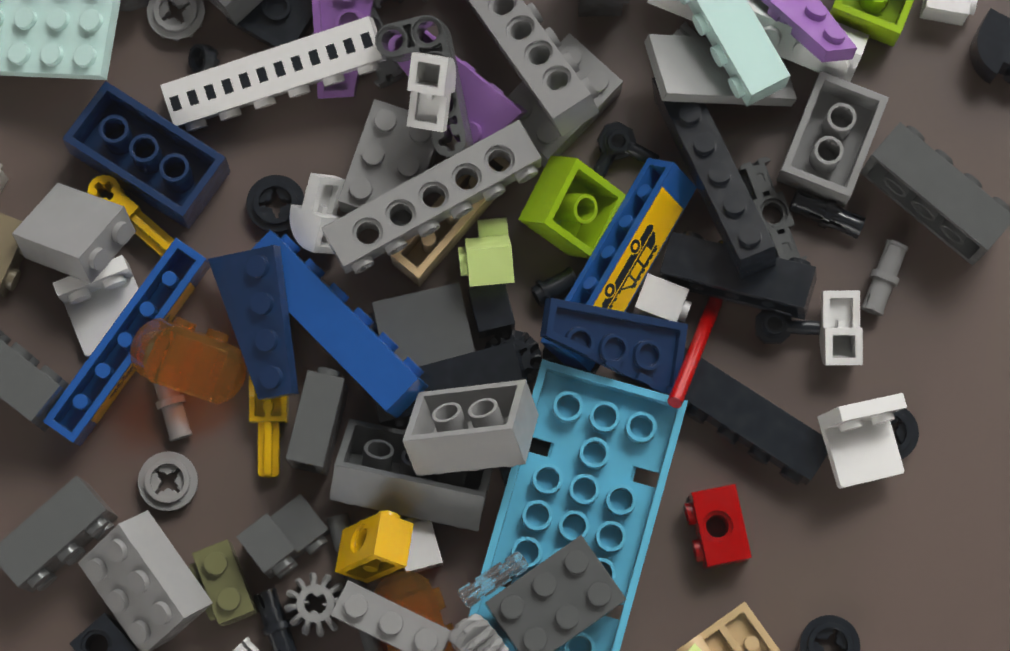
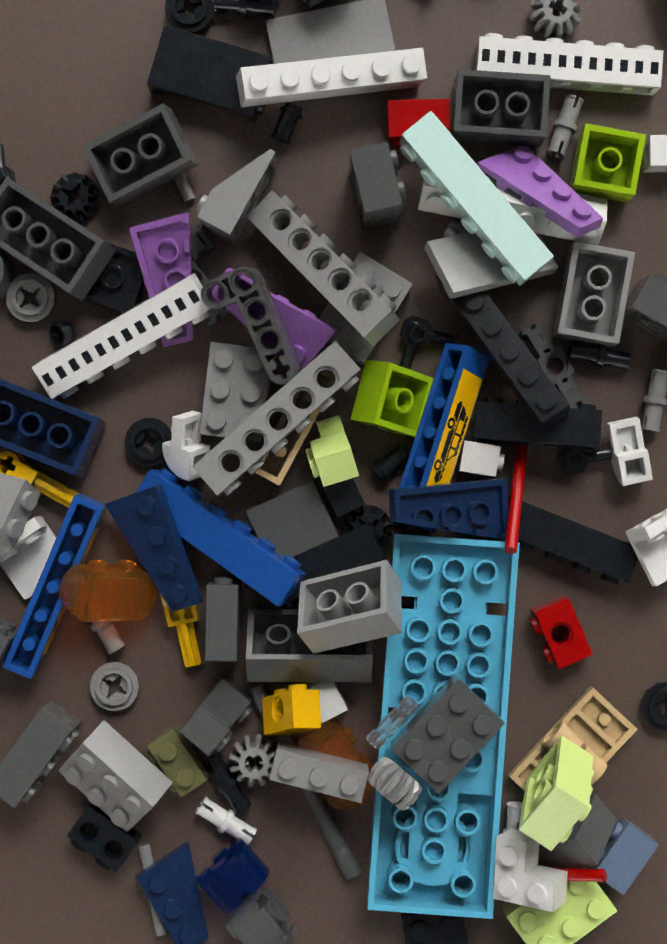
camera: 10 degrees left, 10 degrees up
(431, 84) = (257, 335): white brick -> none

